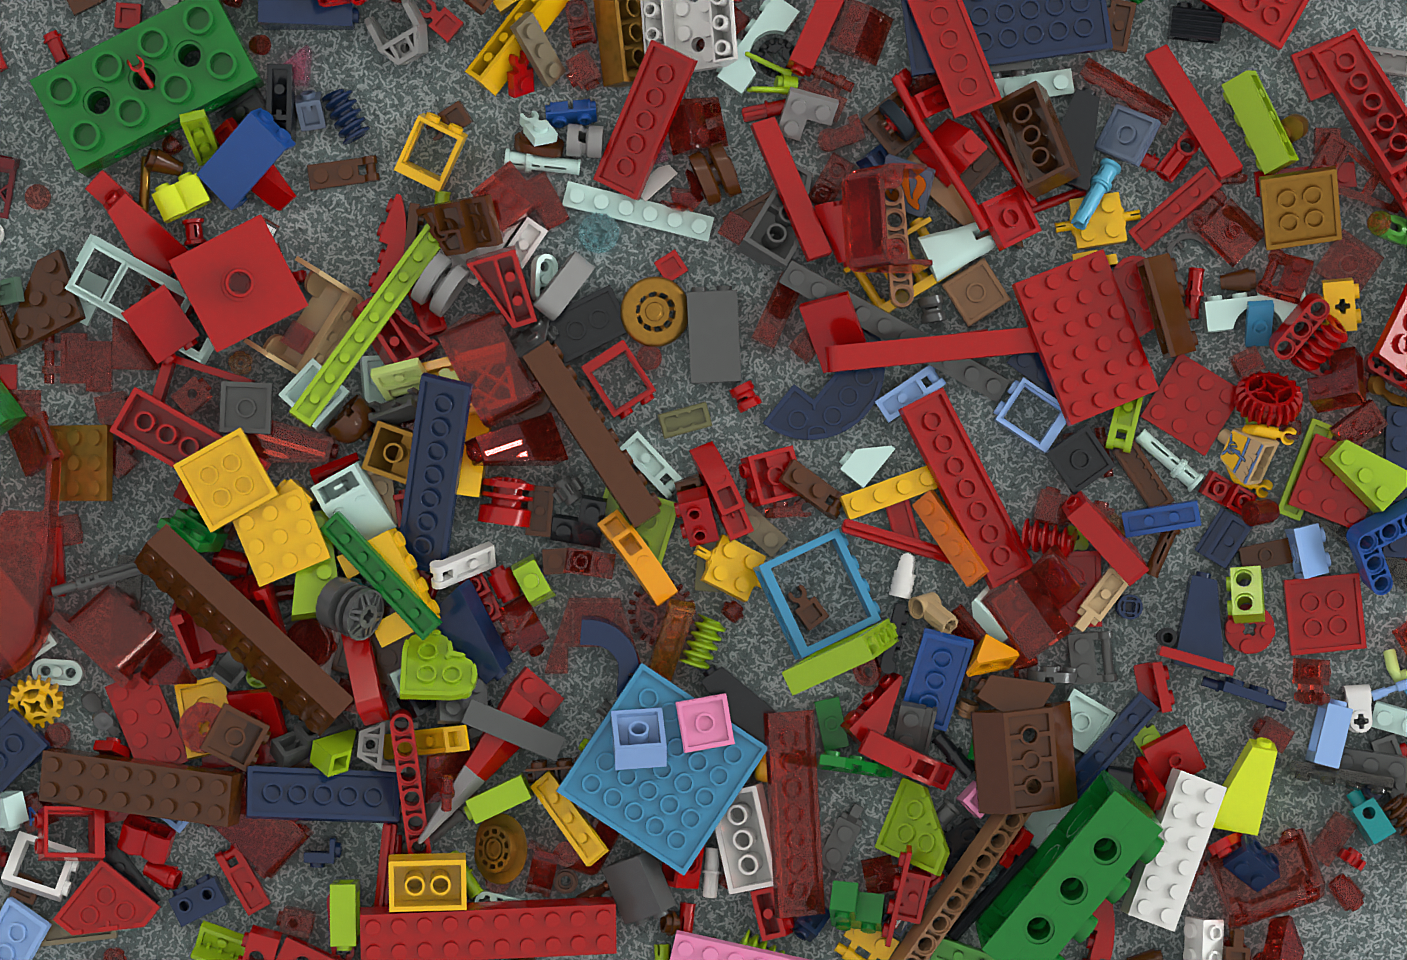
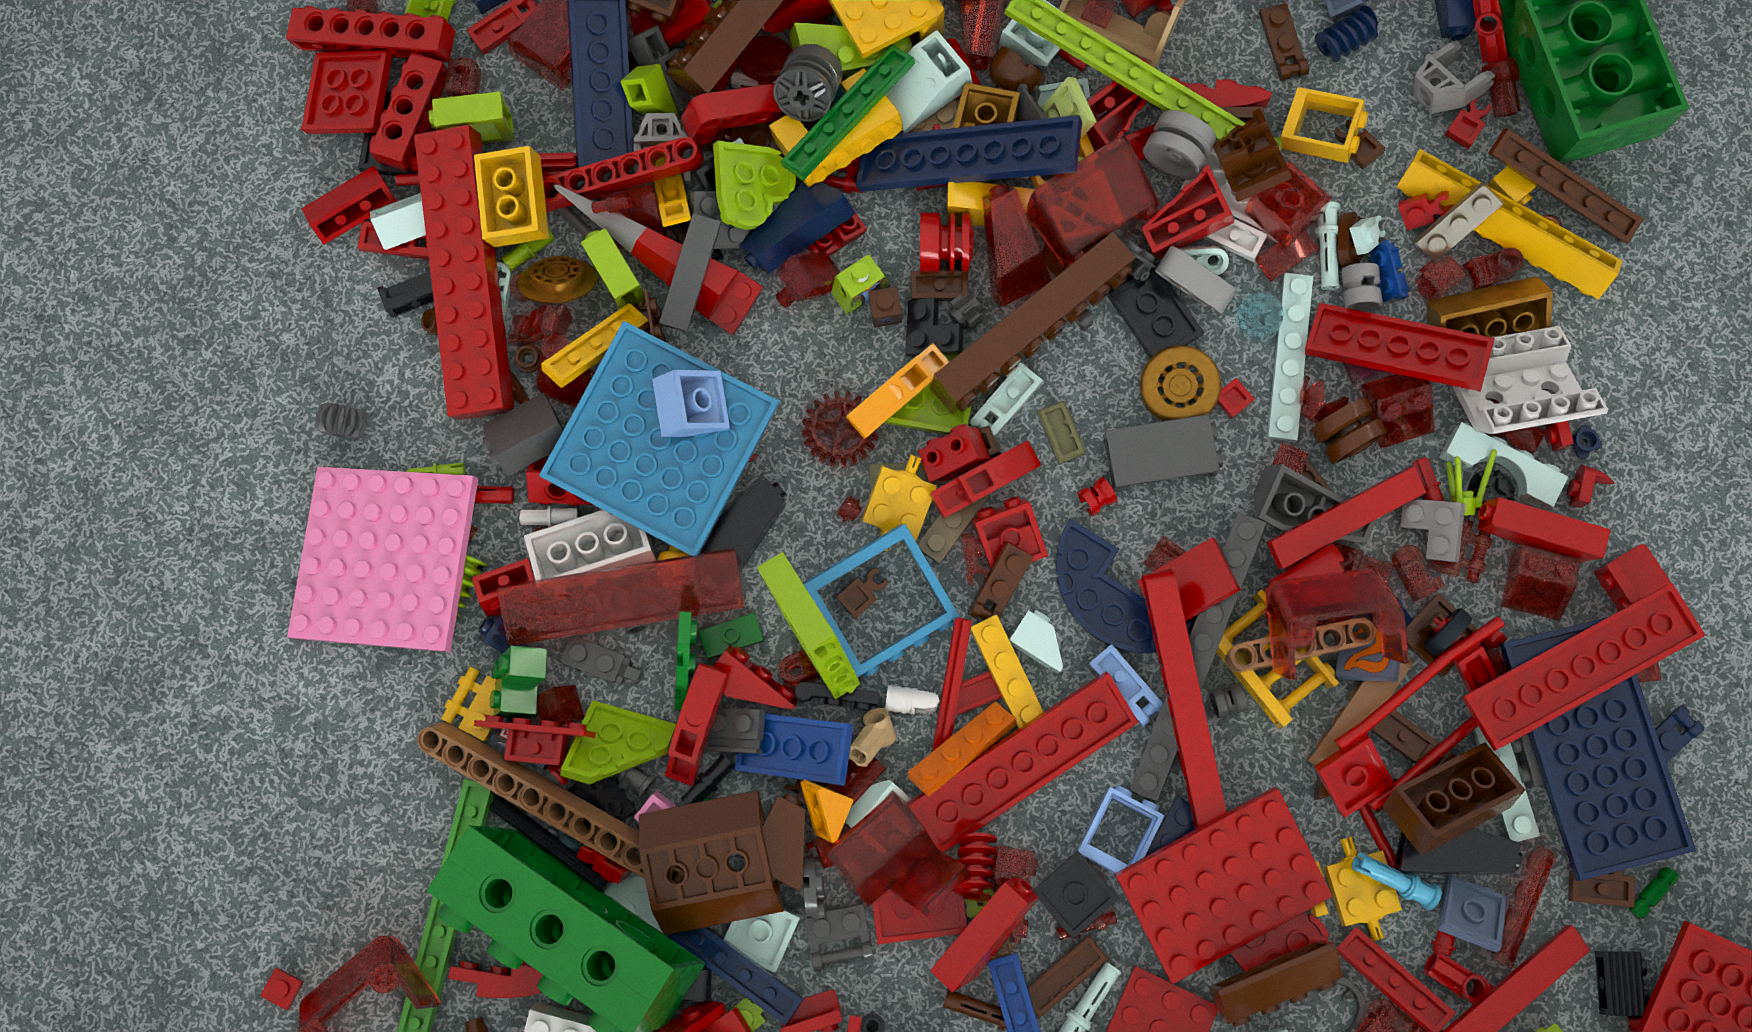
camera: 90 degrees right, 10 degrees down
(318, 858) = (534, 97): dark blue bracket -> none
(462, 565) = (869, 205): white plate -> none
(504, 583) = (852, 253): red brick -> none
(570, 628) = (818, 358): clear red wing -> none
(589, 563) = (887, 338): clear red slope -> none
(604, 358) = (1117, 333): red window -> none
(610, 636) = (804, 374): dark blue arch -> none
(649, 357) = (1126, 386): clear red plate -> none
(657, 180) = (1328, 373): white sticker -> none
(670, 923) = (488, 476): reddish brown plate -> none
(671, 638) = (809, 437): clear orange plate -> none
(703, 643) = (809, 478): lime piece -> none
(704, 723) = (716, 478): bright pink plate -> none
(775, 315) = (1193, 519): clear red slope -> none
(954, 248) = (1307, 715): light aqua piece -> none
(959, 145) = (1428, 709): red slope -> none
(966, 706) = (767, 791): medium nougat plate -> none
(976, 292) = (1255, 750): medium nougat plate -> none
(1100, 599) = (909, 937): tan hinge -> none
(1124, 421) = (1127, 946): lime plate -> none
(1125, 608) = (904, 975): dark blue wheel -> none
(1194, 291) = (1295, 1016): red pin -> none

